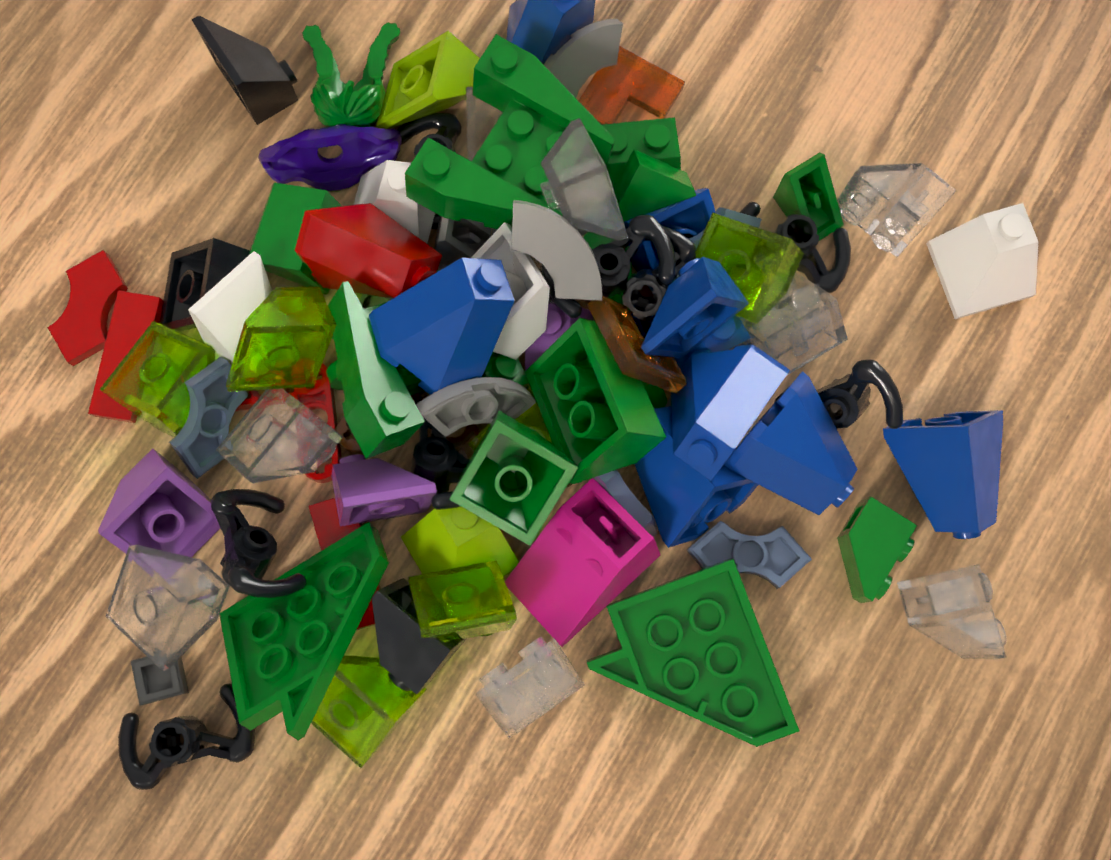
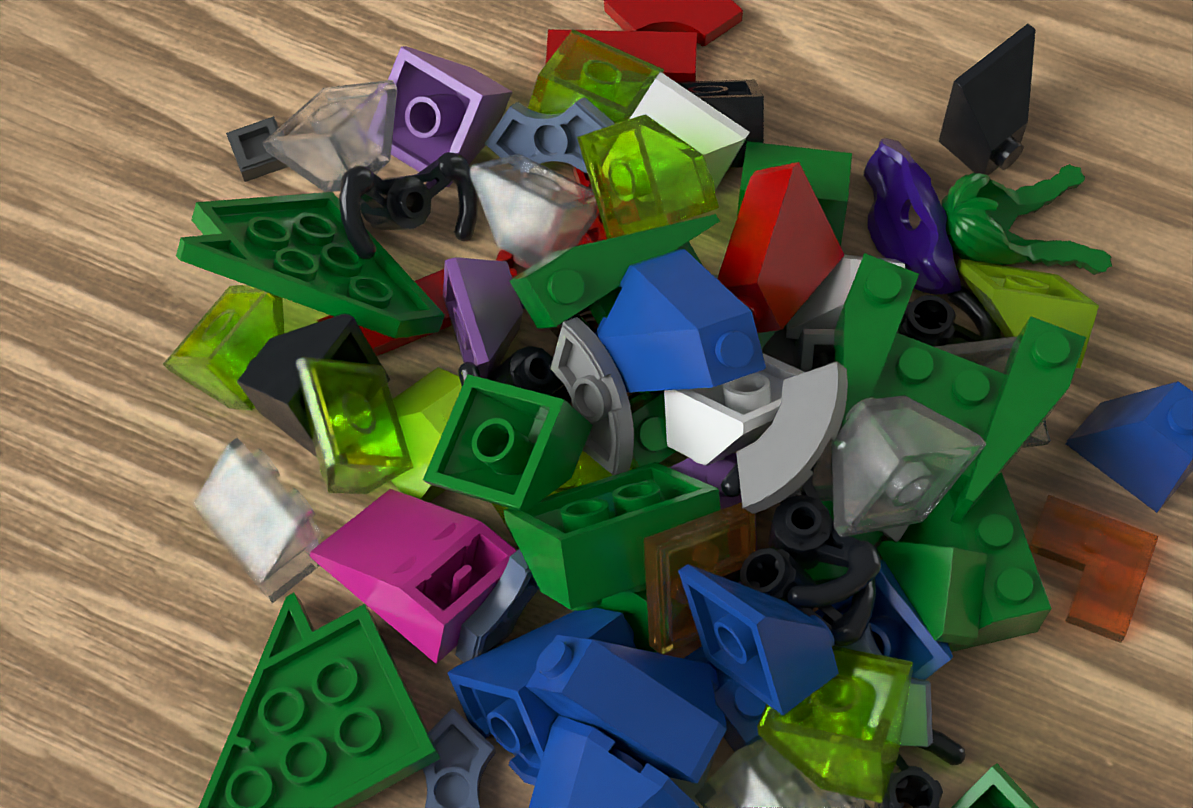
camera: 90 degrees right, 15 degrees down
(166, 744) = (184, 168): black piece -> none
(586, 53) = (1109, 479): light grey tile -> none

